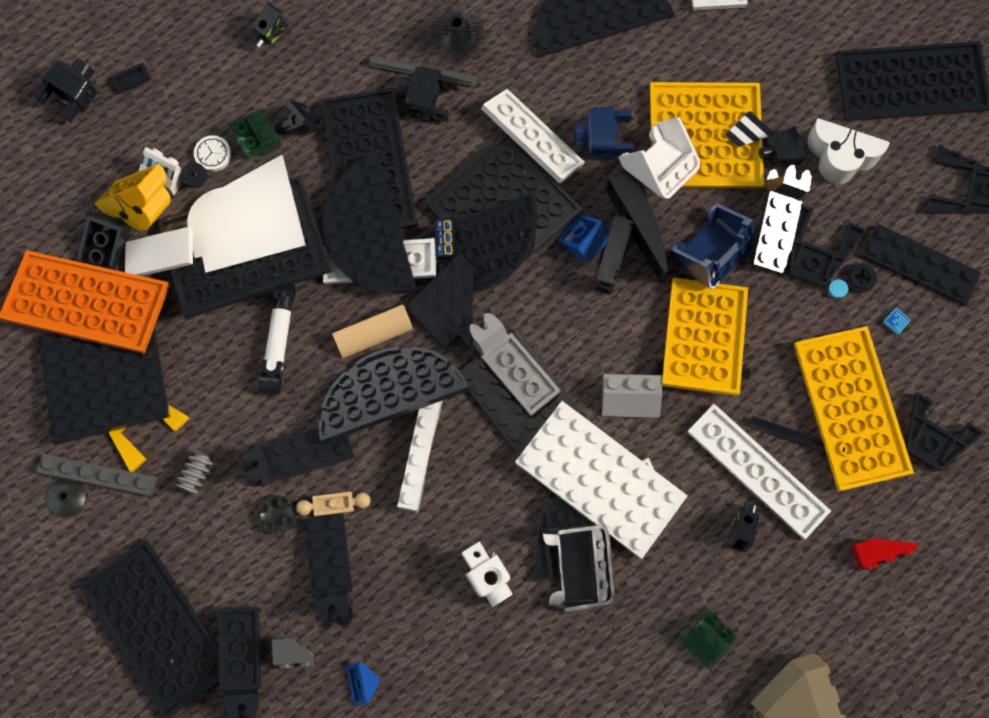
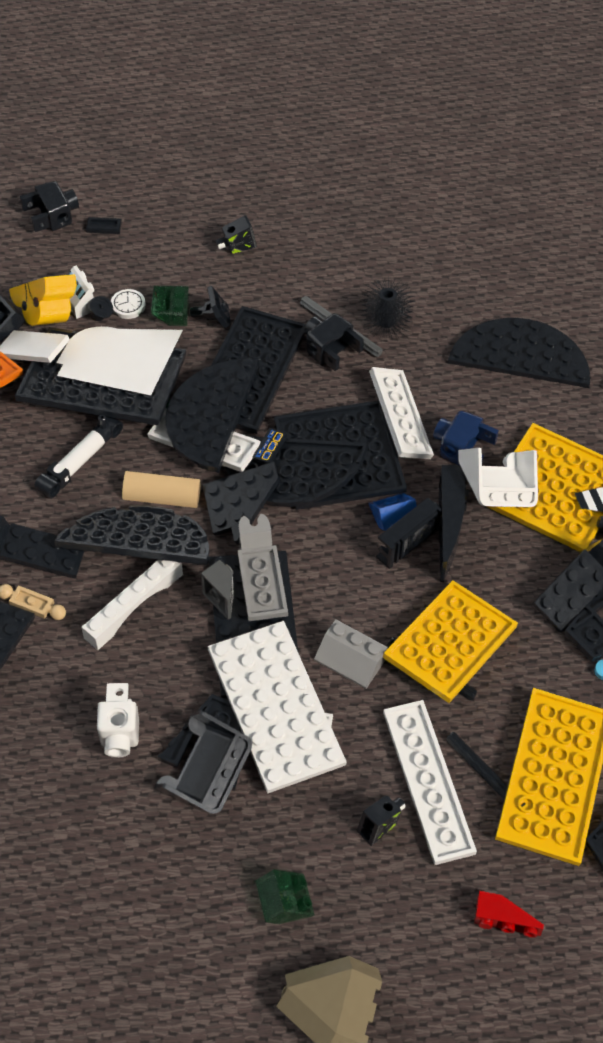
camera: 30 degrees right, 20 degrees down
(493, 403) = (218, 587): none -> dark grey slope
(717, 246) = (508, 578): dark blue windscreen -> none

